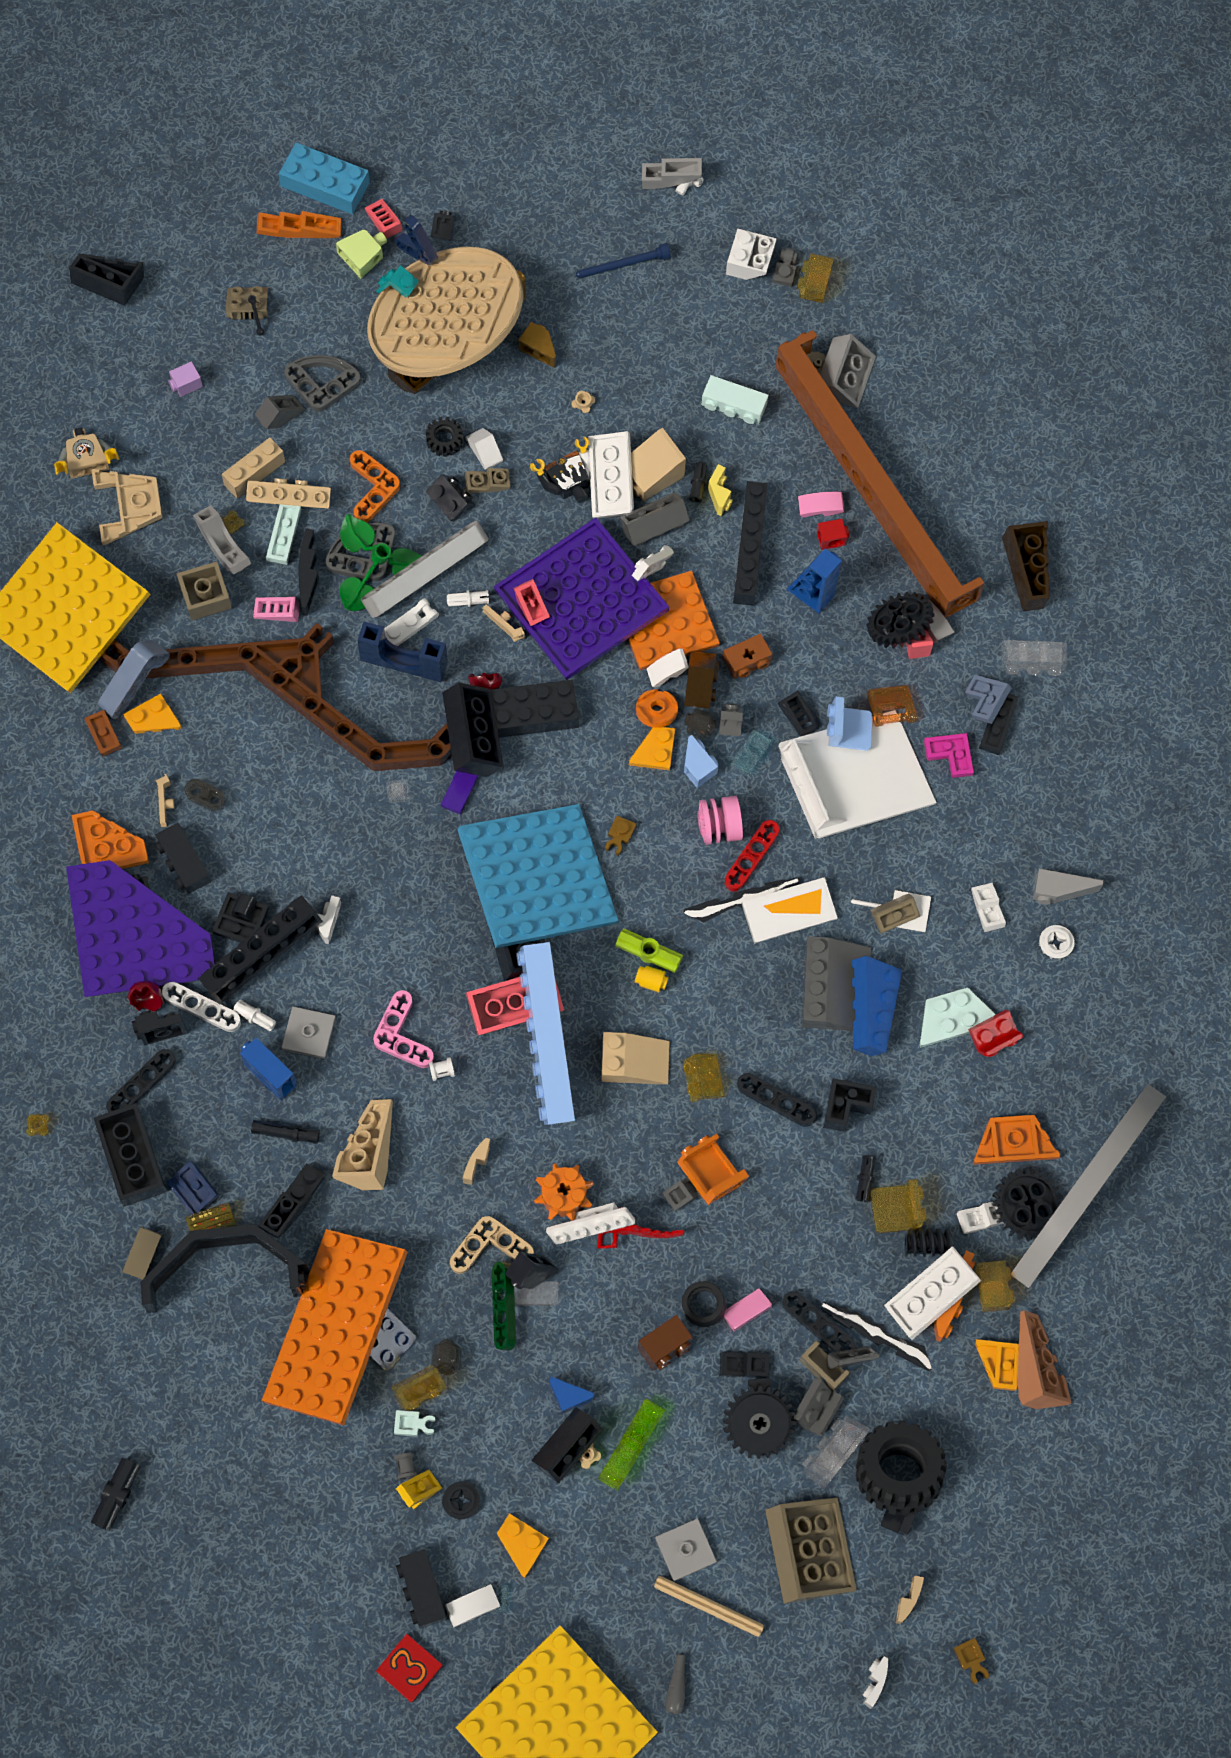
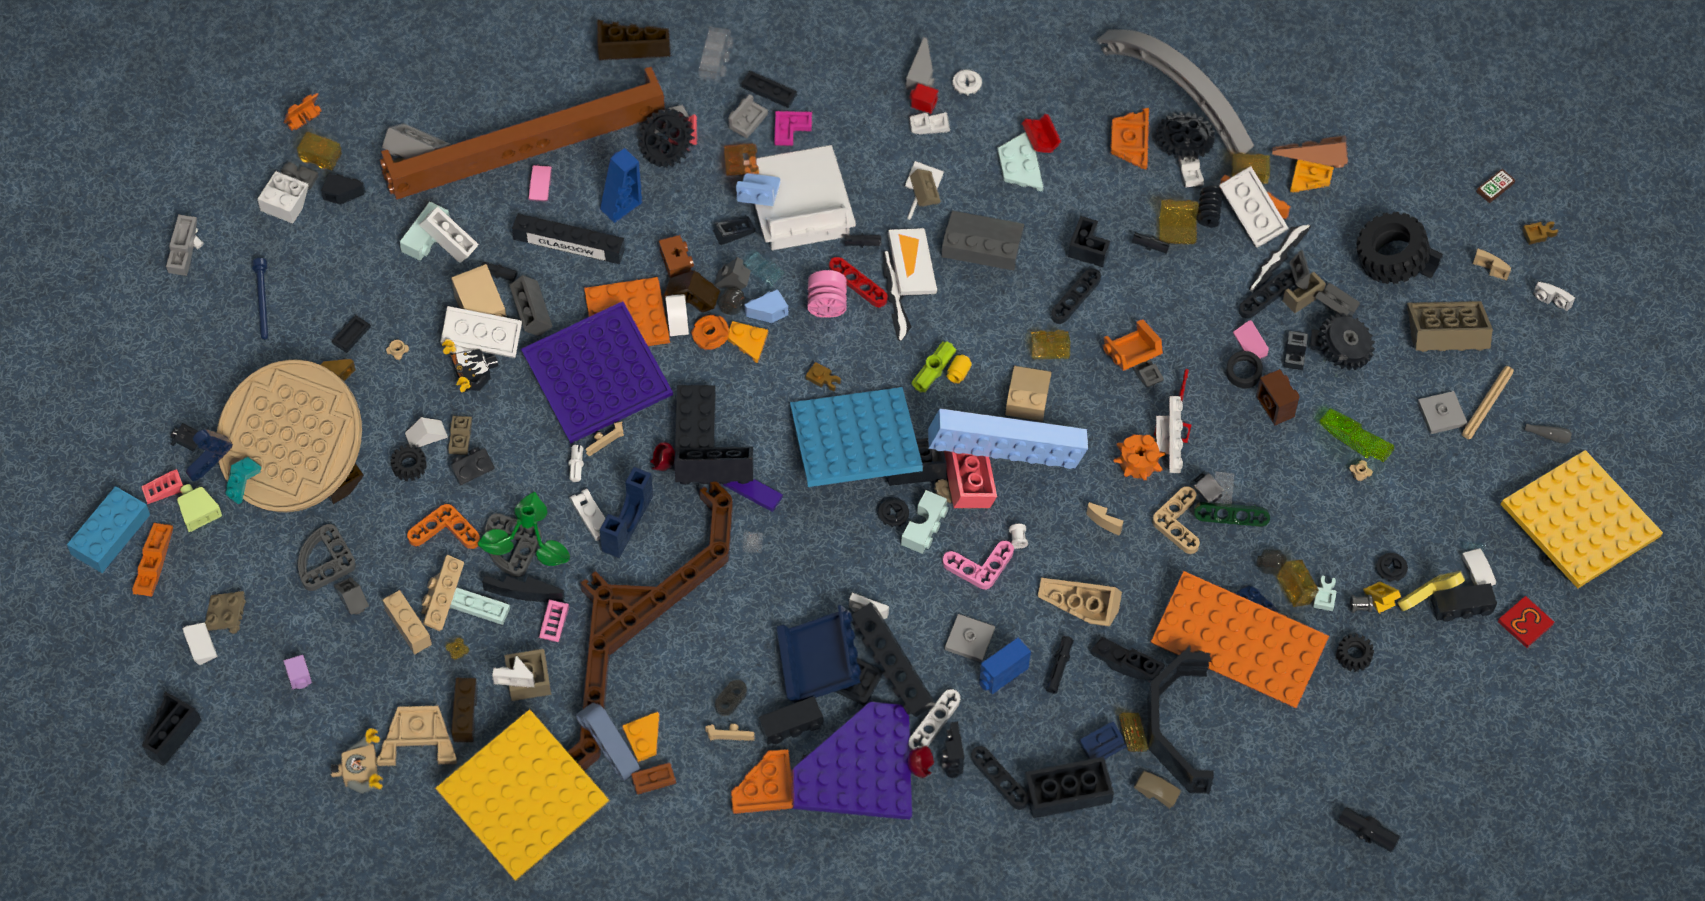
camera: 80 degrees left, 10 degrees down
(37, 1119) = (1032, 863): clear yellow plate -> none
(172, 536) = (464, 708): none -> dark brown arch
(189, 574) = (518, 677): none -> white slope
(208, 285) = (200, 643): none -> white slope
(220, 541) = (476, 659): light grey arch -> none
(252, 299) = (233, 597): black hinge -> none
(254, 1015) = (949, 678): white axle -> none
(256, 871) = (819, 656): none -> dark blue panel
(340, 1449) = (1355, 663): none -> black tyre
(424, 569) = (541, 492): light grey beam -> none
(438, 1554) = (1441, 582): none -> light yellow beam
(457, 923) = (896, 505): none -> black gear
(461, 973) = (919, 535): none -> light aqua arch
(487, 978) = (943, 489): none -> dark tan piece
(521, 1543) = (1429, 527): light orange wing -> none
(531, 602) = (598, 406): coral slope -> none
(567, 1445) = (1354, 480): black brick -> none
(569, 1396) = (1313, 476): blue slope -> none
(595, 354) = (351, 334): none -> black tile
(652, 563) = (578, 308): white plate -> none
(720, 496) = (517, 256): light yellow slope -> none
(724, 419) = (448, 234): none -> white brick
(771, 308) = (341, 189): none -> black slope
(808, 852) = (863, 240): none -> black axle
(832, 534) = (572, 178): red brick -> none
(834, 1451) = (1375, 292): clear slope -> none
(858, 248) = (306, 108): none -> orange hinge
(874, 1004) = (1007, 210): blue wedge -> none
(952, 703) = (746, 117): none -> light grey bracket
(990, 696) = (745, 85): sand blue plate -> none
(1018, 893) = (924, 98): none -> red brick
(1034, 1600) = (1495, 186): none -> tile

